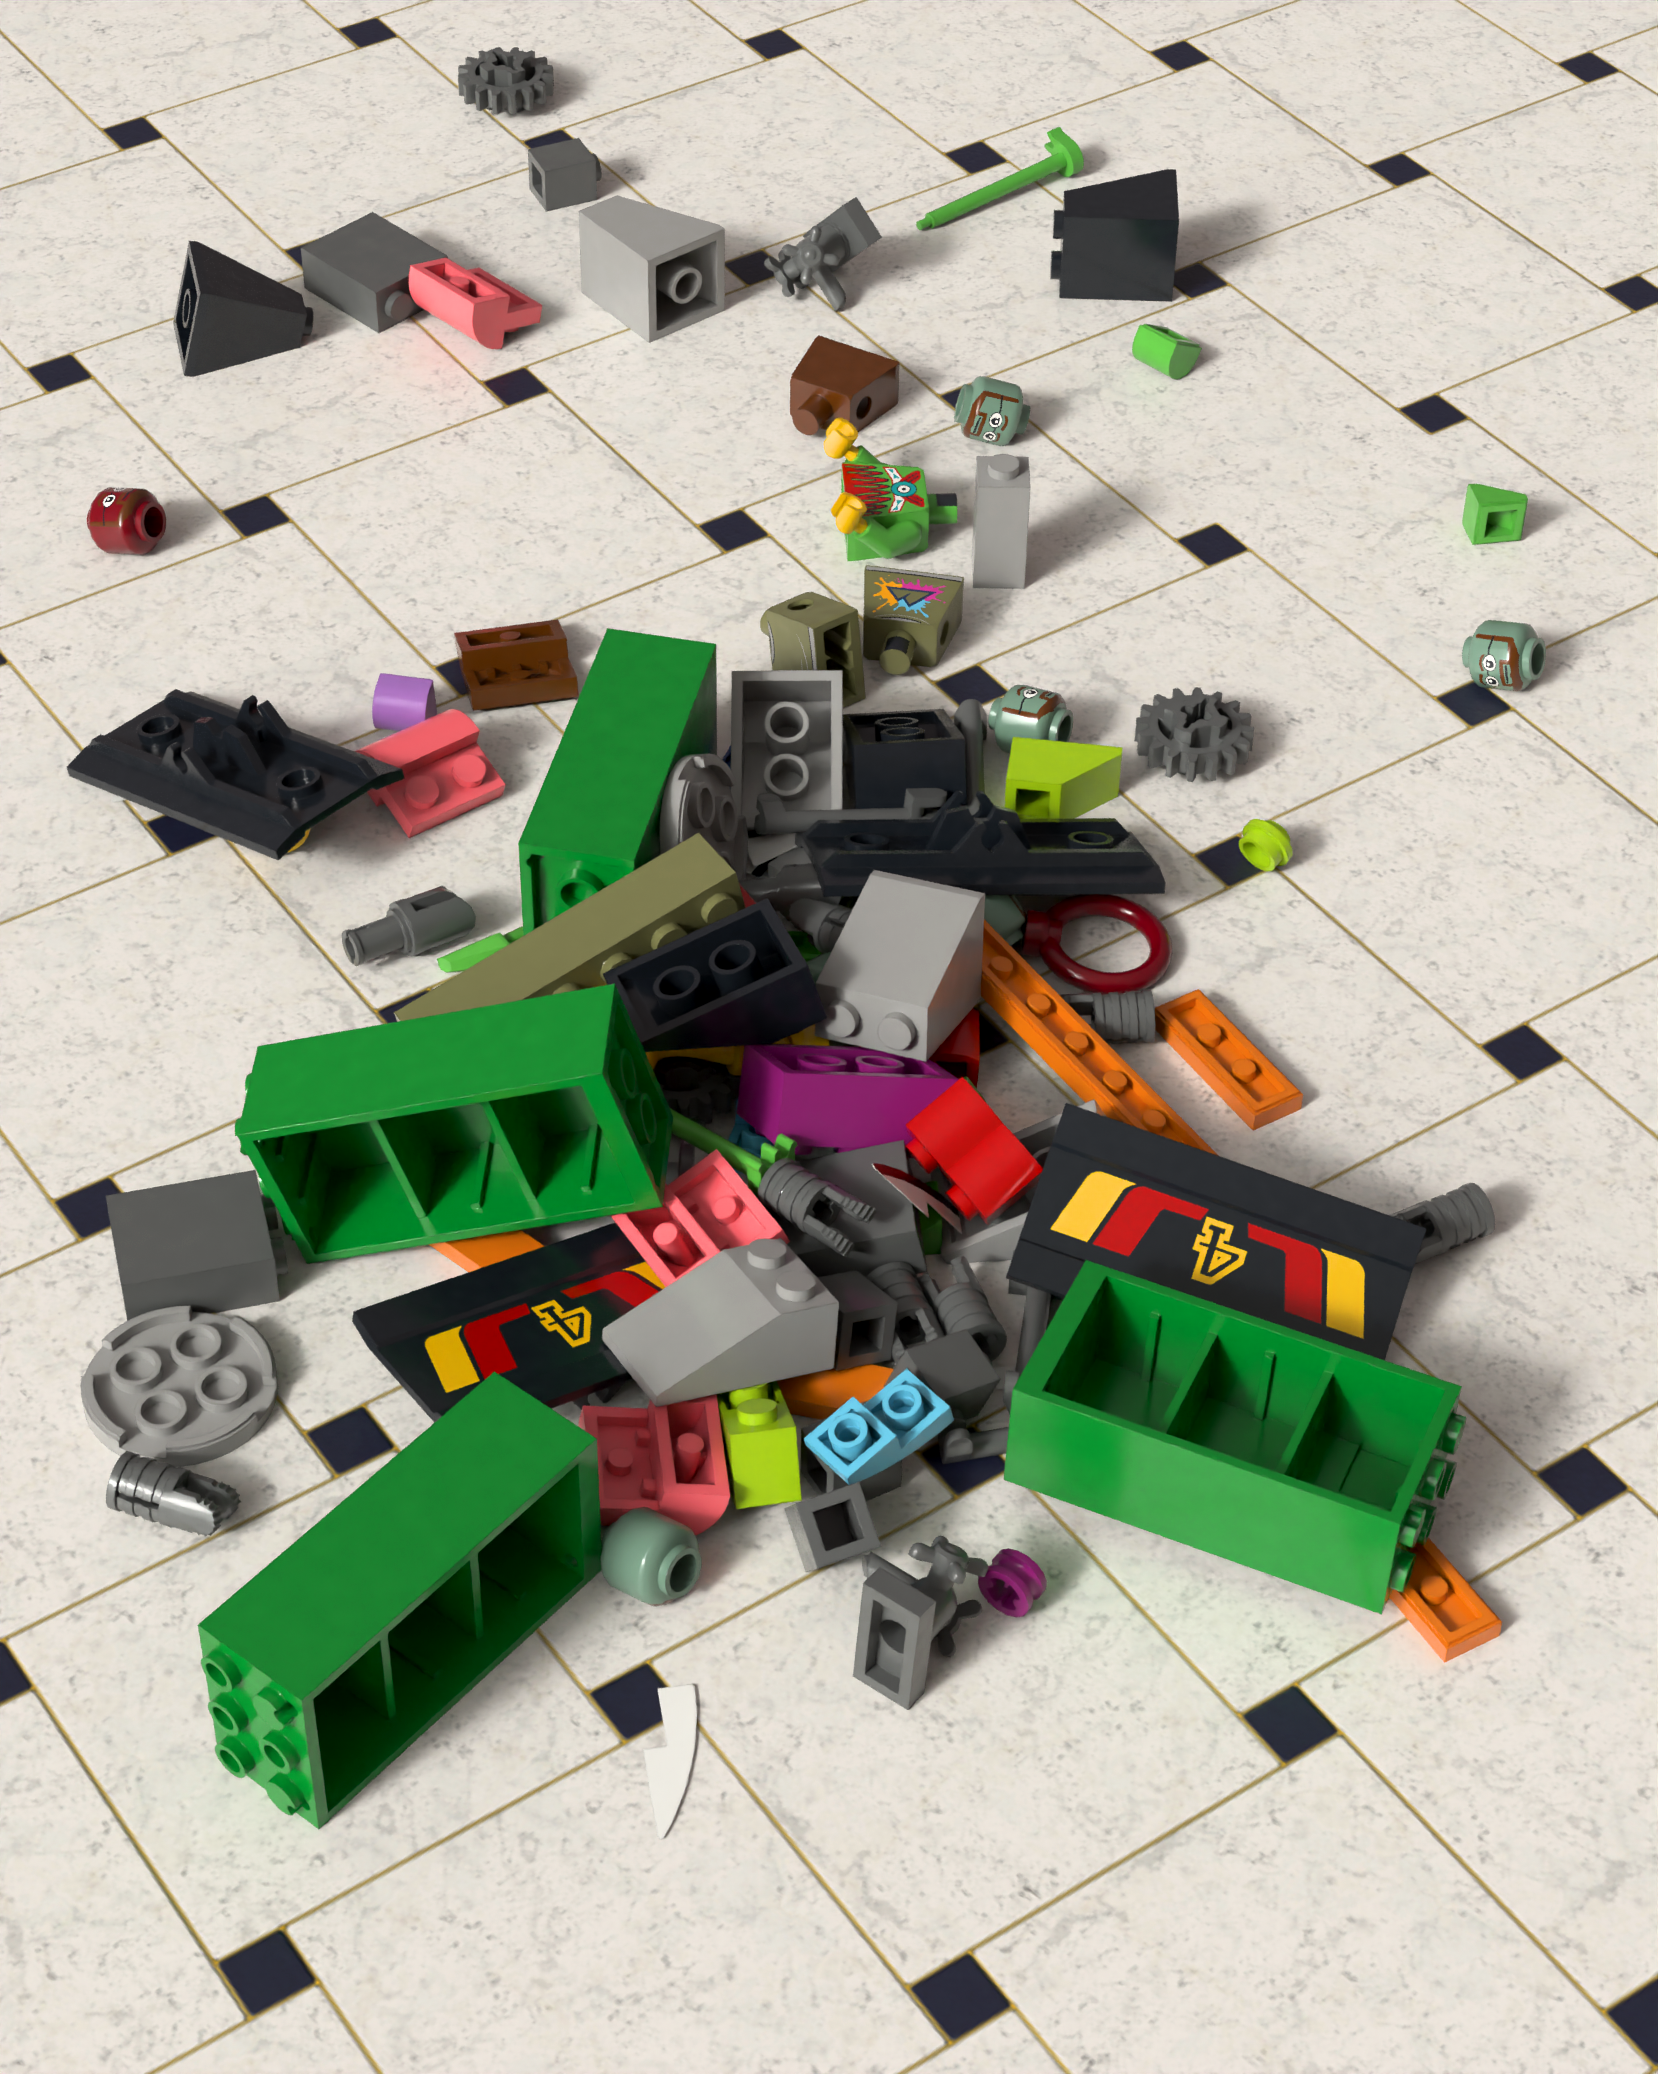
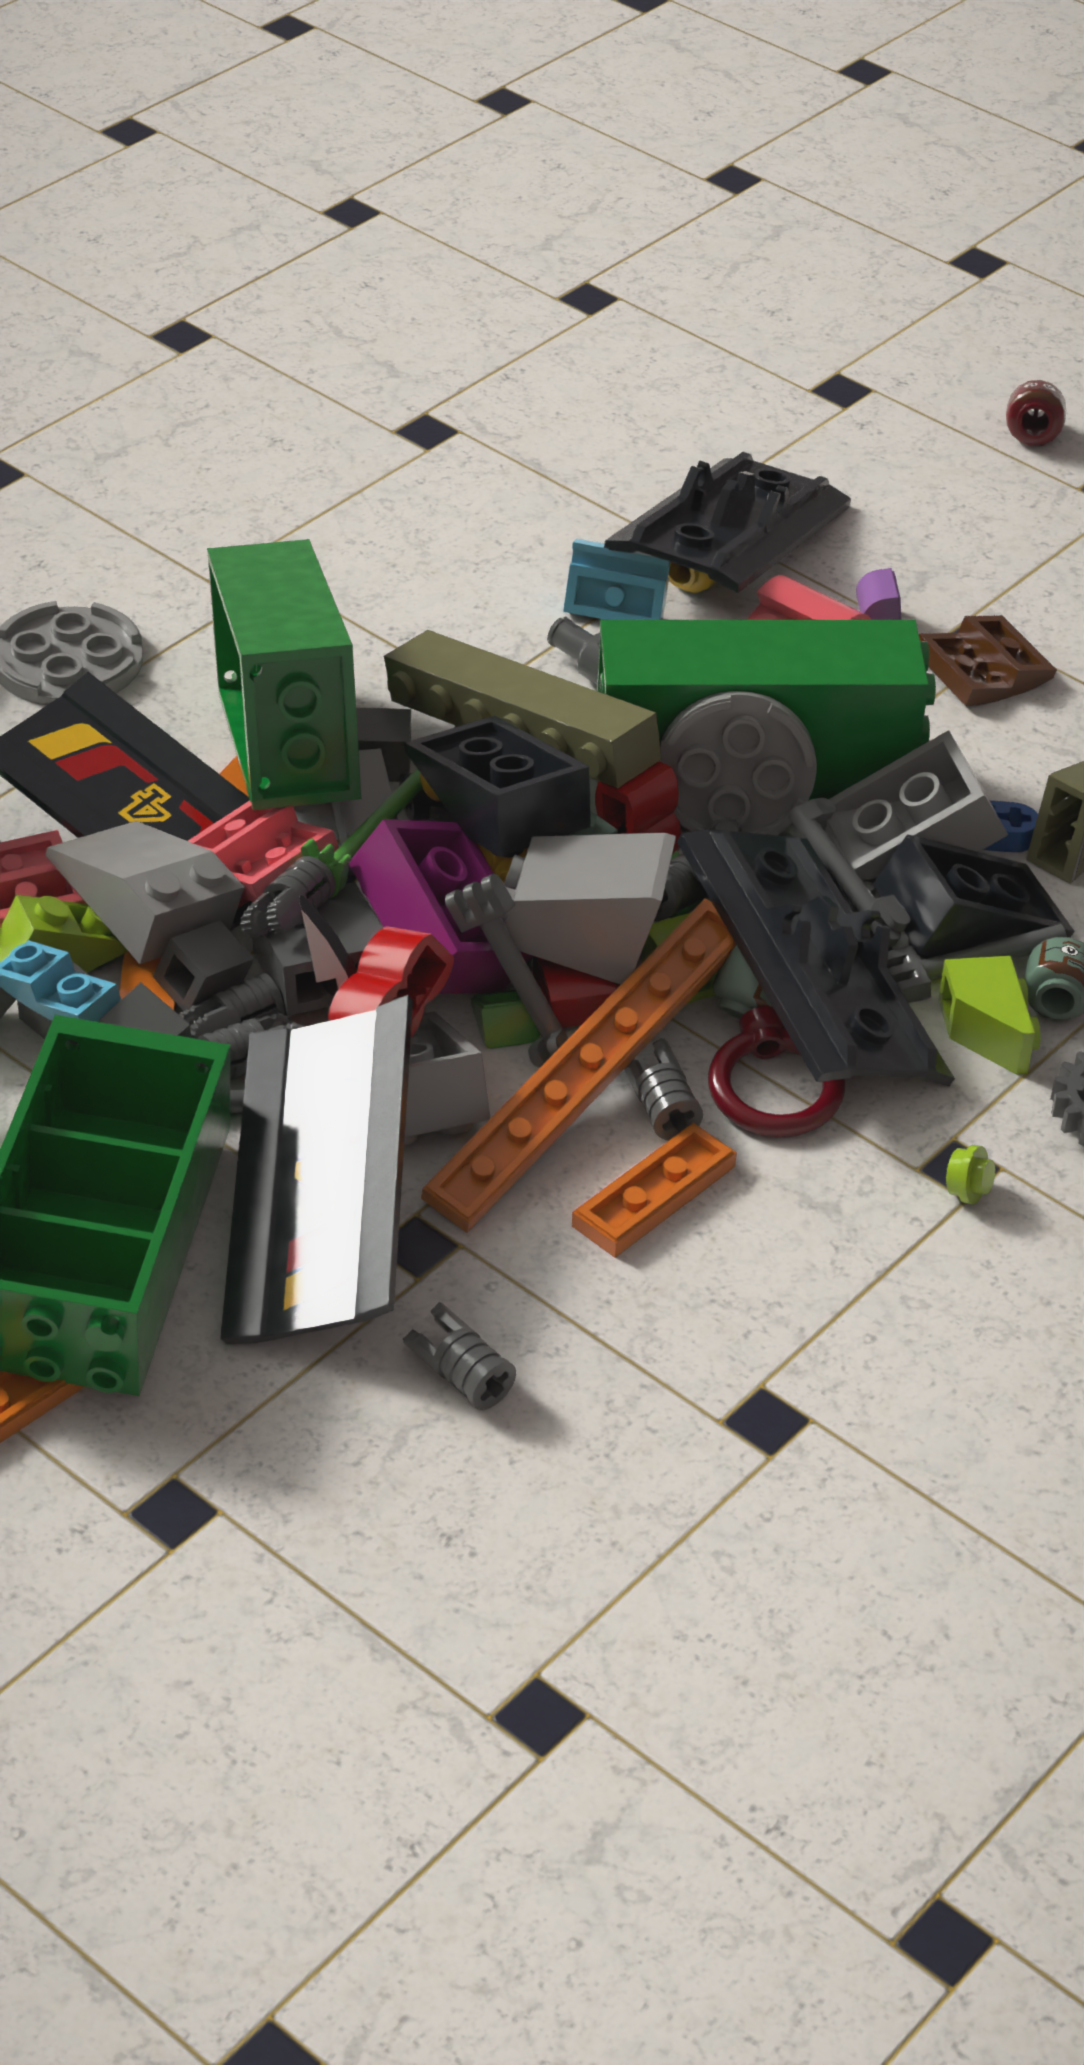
camera: 75 degrees right, 0 degrees up
(197, 1245) = (175, 620): dark grey brick -> none
(299, 886) = (615, 583): none -> medium azure plate
(931, 1044) = (483, 907): none -> dark grey hinge

